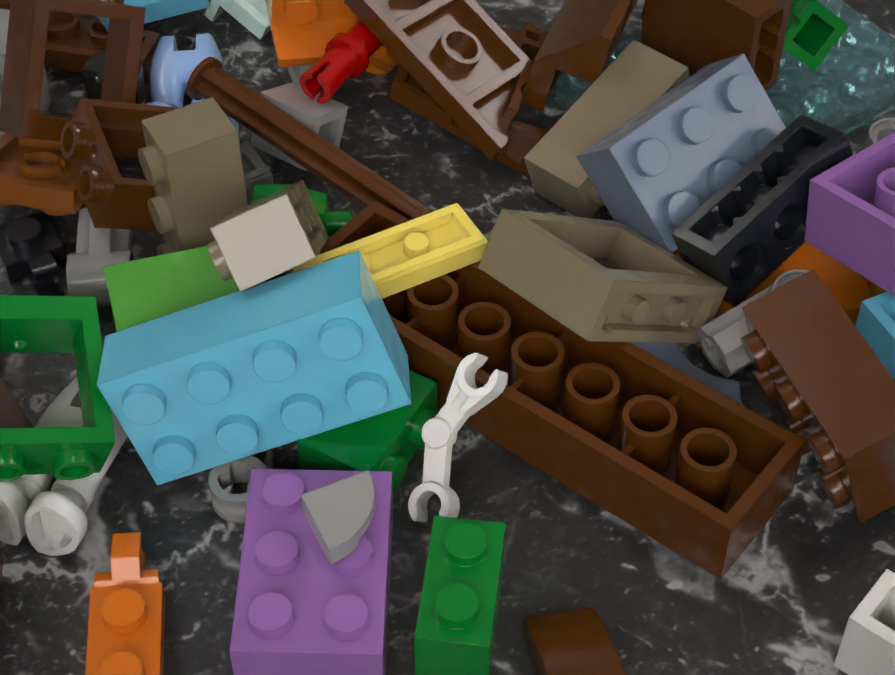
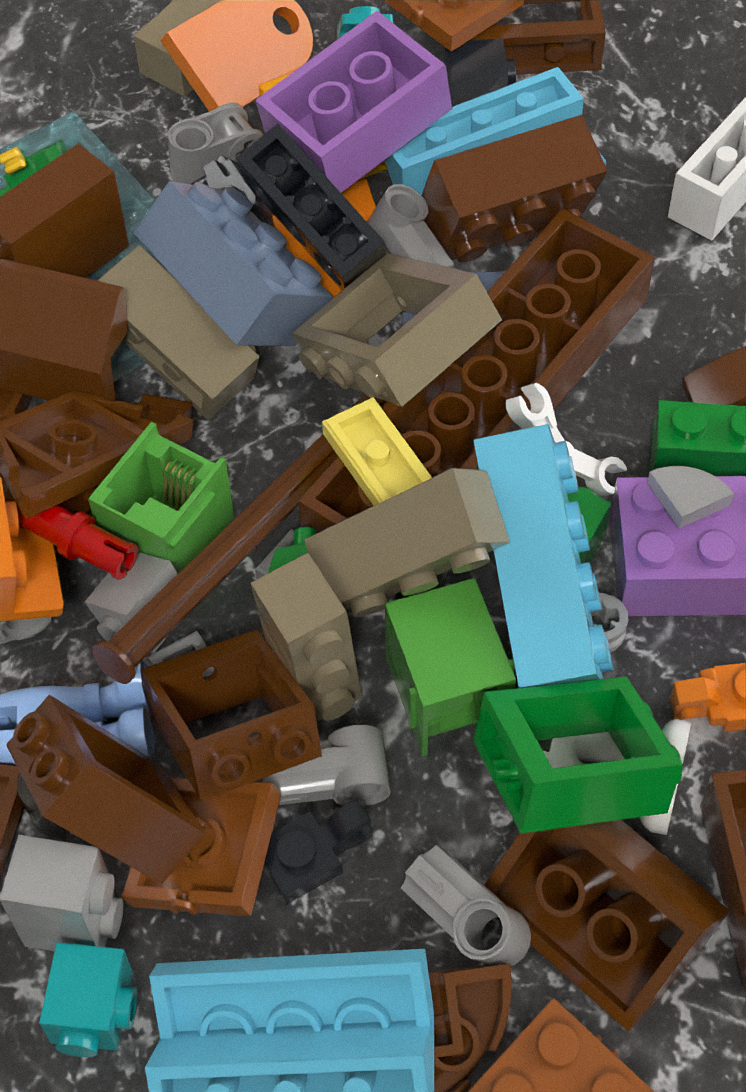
camera: 90 degrees left, 10 degrees up
(392, 118) = (164, 499): none -> bright green piece

